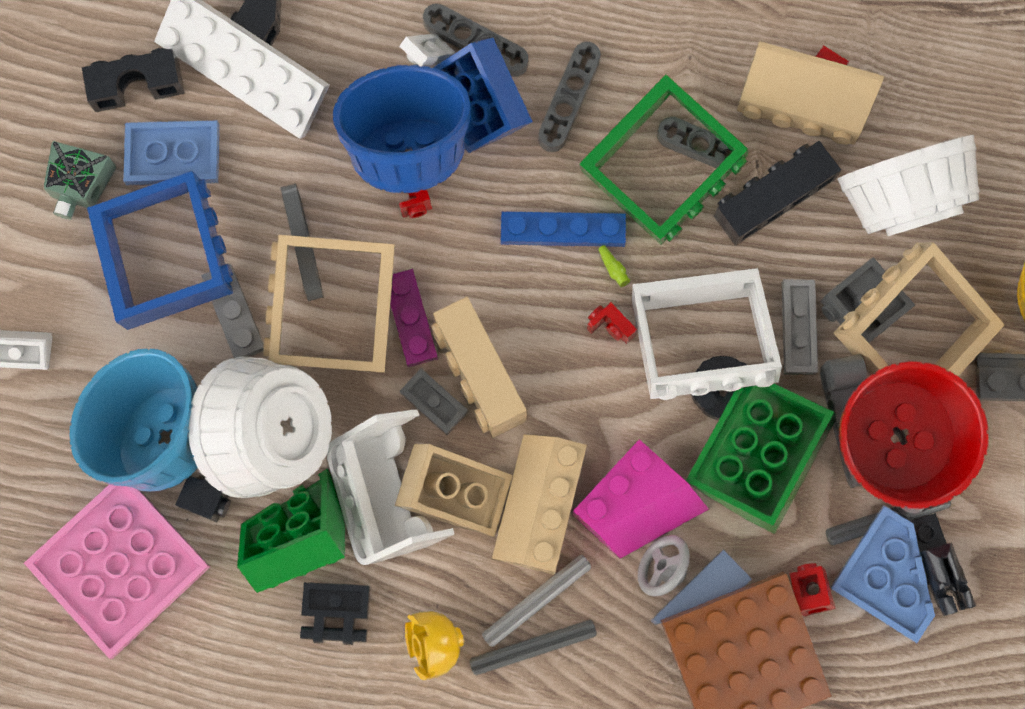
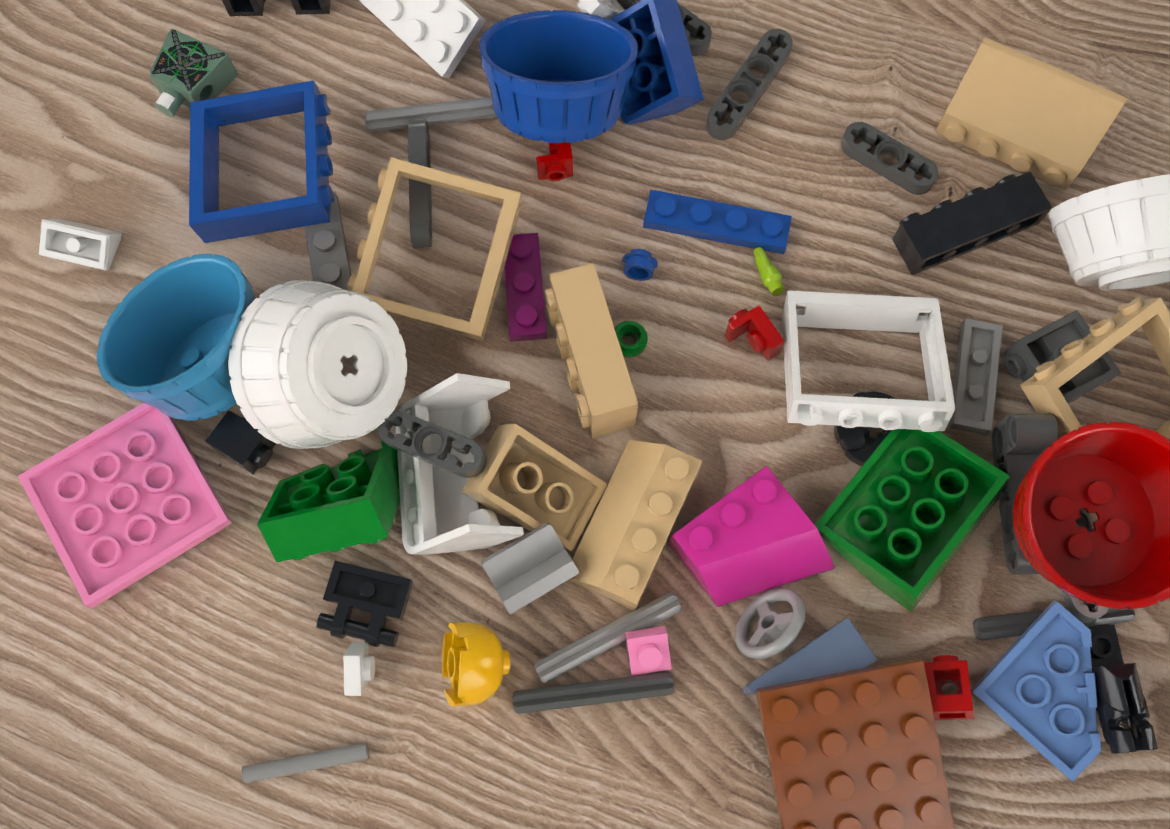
camera: 10 degrees right, 5 degrees down
(170, 149) = (293, 57): medium blue plate -> none
(299, 175) = (434, 113): none -> light grey axle
(343, 665) = (358, 669): none -> white plate
(385, 486) = (452, 464): none -> dark grey beam
(434, 401) = (532, 382): dark grey plate -> none
(463, 558) = (529, 567): none -> light grey panel
(504, 281) = (639, 264): none -> blue plate
(512, 339) = (635, 330): none -> green plate
(570, 605) = (648, 650): none -> bright pink plate
(629, 125) = (812, 120): green window -> none

